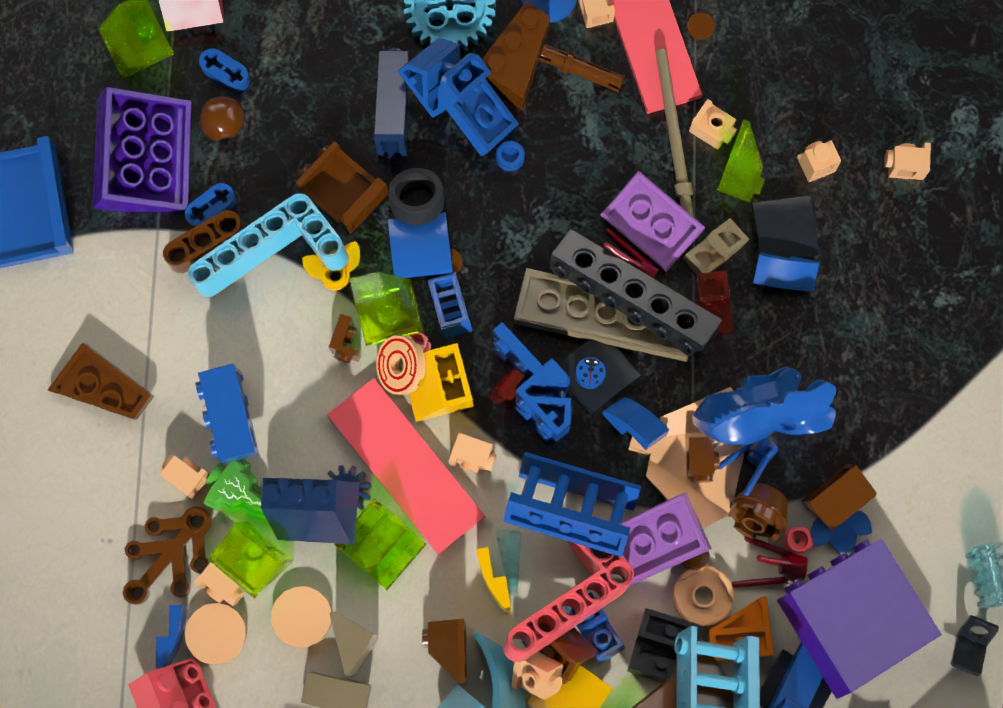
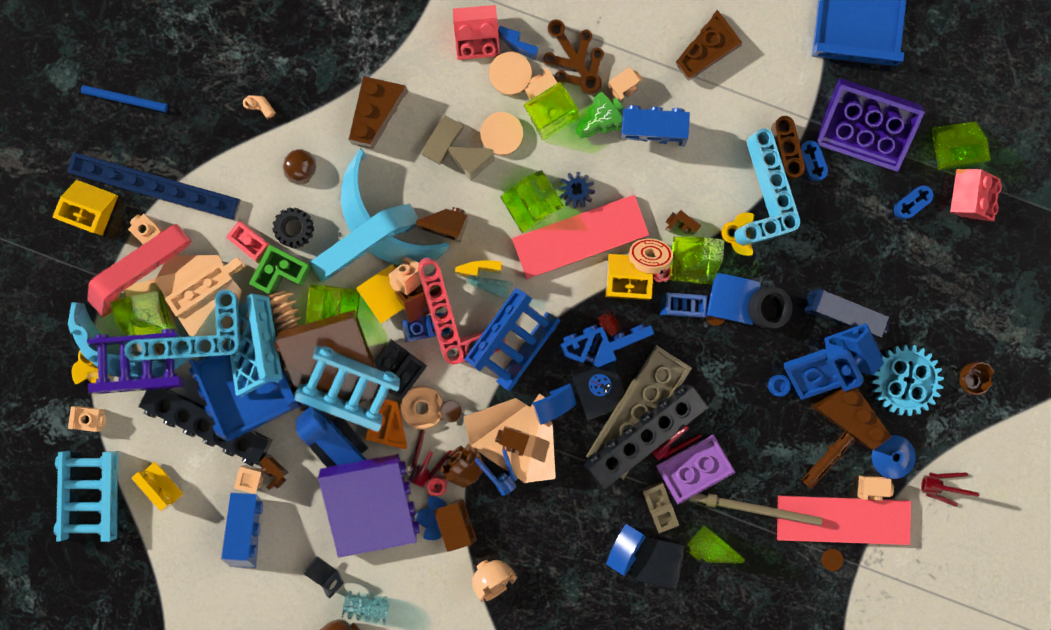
camera: 105 degrees right, 10 degrees up
(221, 118) = (877, 189): reddish brown hair -> none
(311, 509) = (570, 161): dark blue slope -> none
(341, 187) = (795, 257): reddish brown panel -> none
(472, 453) = (571, 284): light nougat brick -> none
(664, 537) = (468, 393): medium lavender tile -> none
(705, 130) = (752, 531): light nougat brick -> none
(715, 298) = (623, 492): clear red slope -> none
(766, 406) = (533, 495): blue animal -> none
(819, 160) = (700, 605): light nougat brick -> none
(888, 425) = (491, 579): none -> light nougat cylinder

